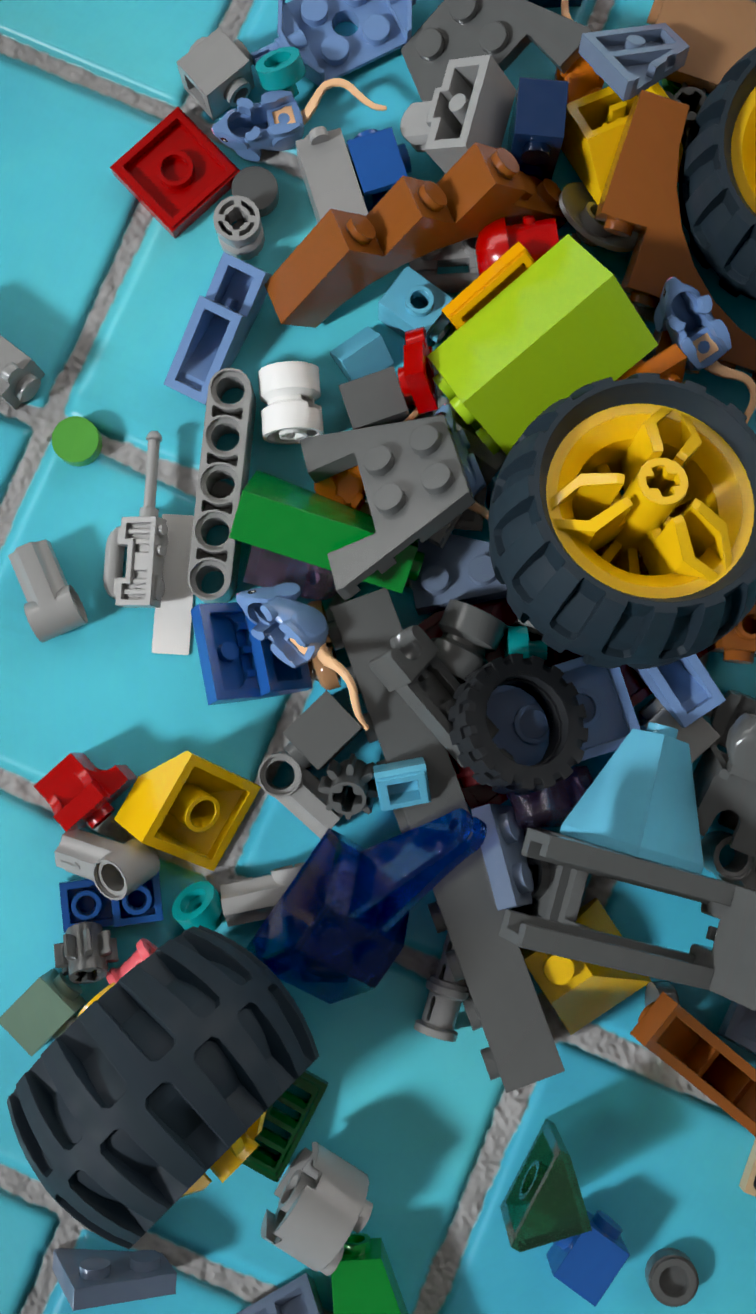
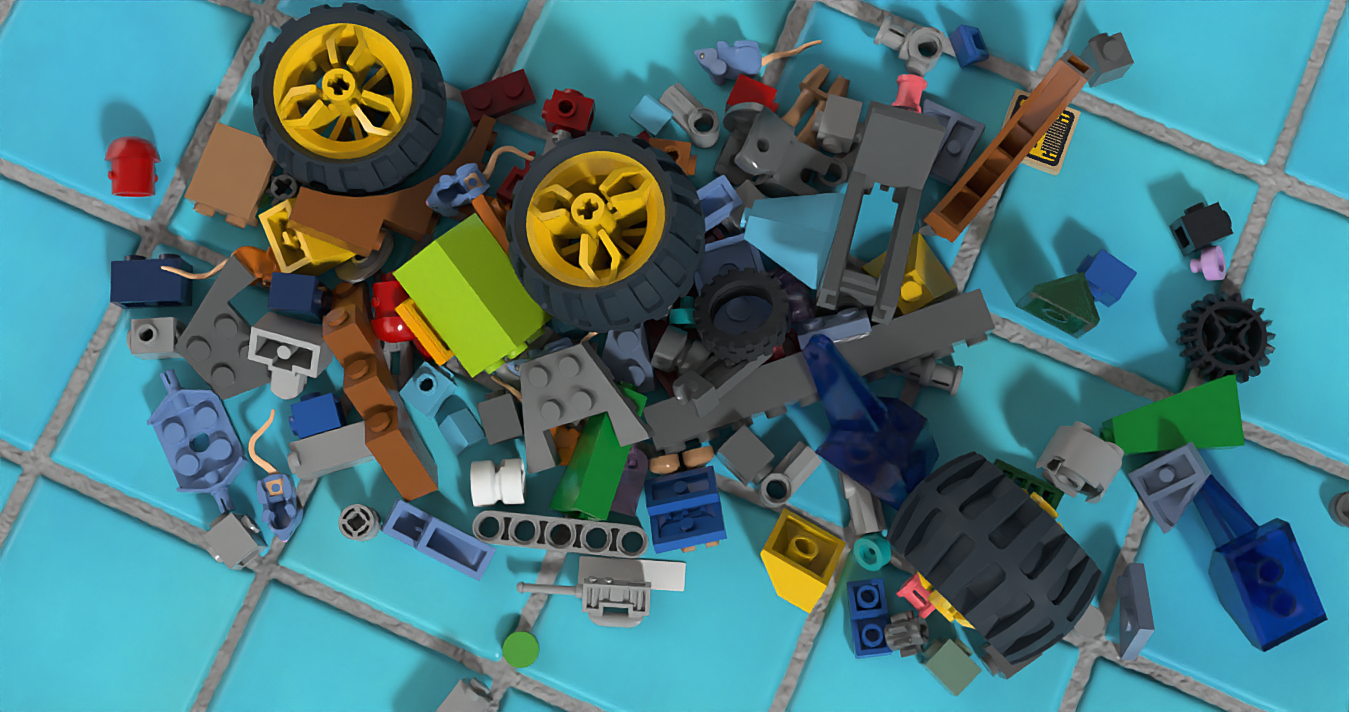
camera: 90 degrees left, 5 degrees down
(52, 603) = (646, 666): light grey piece -> none
(82, 792) = (789, 637): red brick -> none
(110, 864) = (843, 610): light grey piece -> none
(175, 172) = (310, 574): red tile -> none
(258, 186) = (326, 511): dark grey tile -> none
(281, 69) = (239, 488): teal tile -> none
(295, 631) = (673, 473): medium blue animal -> none
(348, 799) = (785, 436): dark grey gear -> none
(402, 784) = (783, 396): medium azure slope -> none
(418, 371) = (484, 384): red plate -> none
(634, 56) = (254, 225): sand blue wing -> none
(671, 1277) = (1118, 222): dark grey tile -> none

